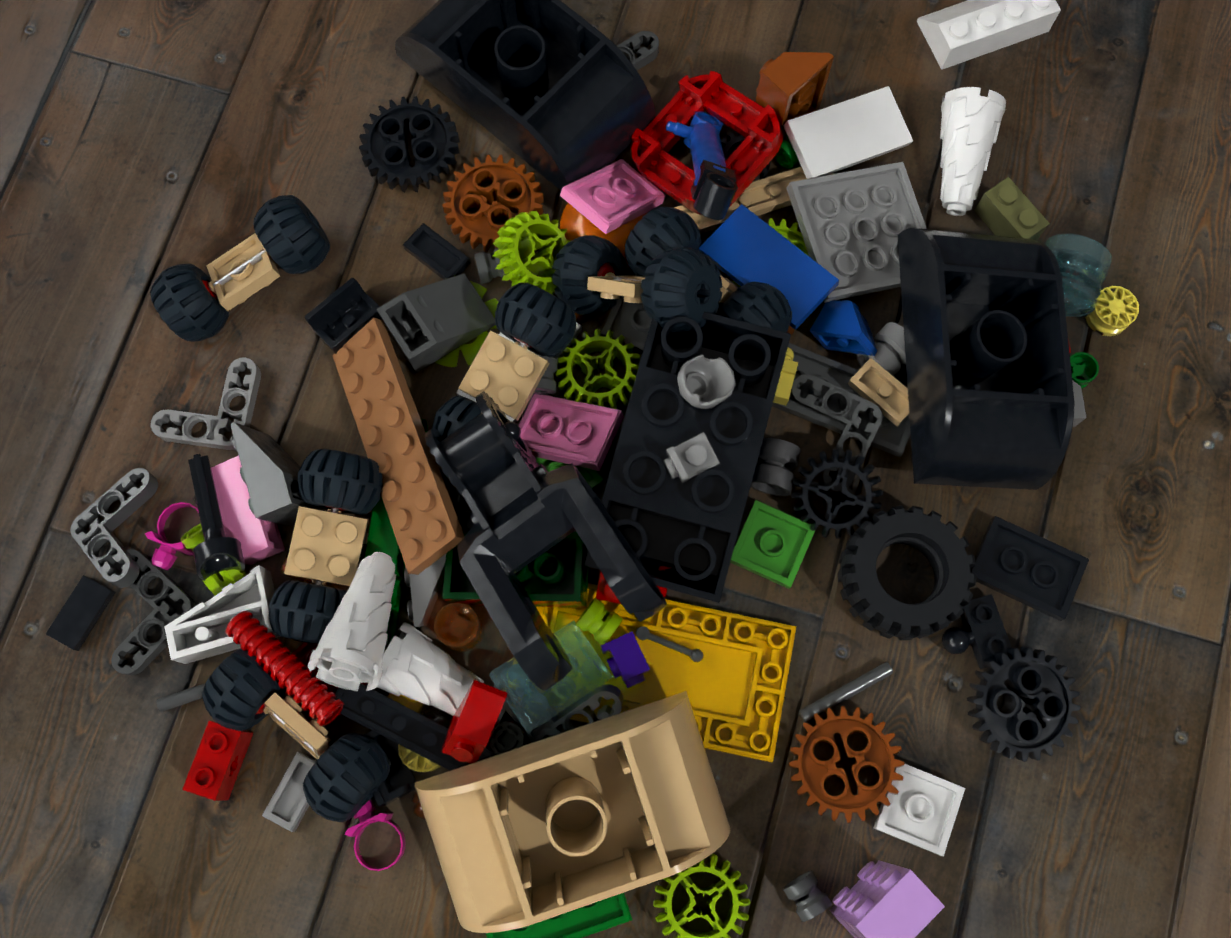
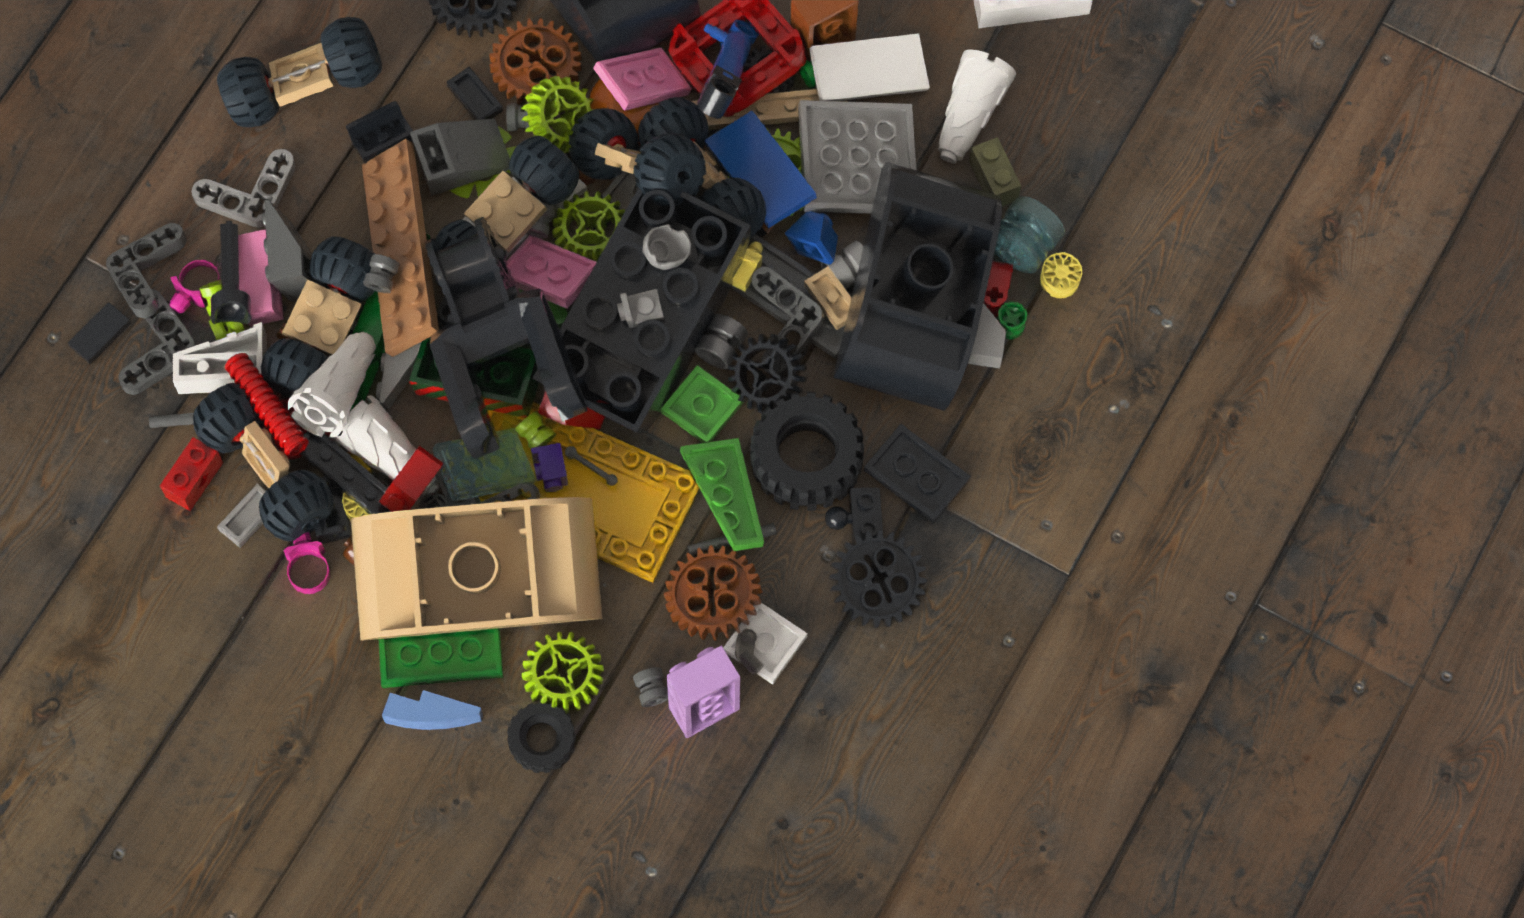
camera: 10 degrees right, 5 degrees down
(382, 482) = (381, 273): none -> dark grey wheel
(459, 627) = (416, 412): clear orange wheel -> none
(826, 634) = (726, 487): none -> bright green wing
(904, 831) = (745, 651): none -> clear smoke arm

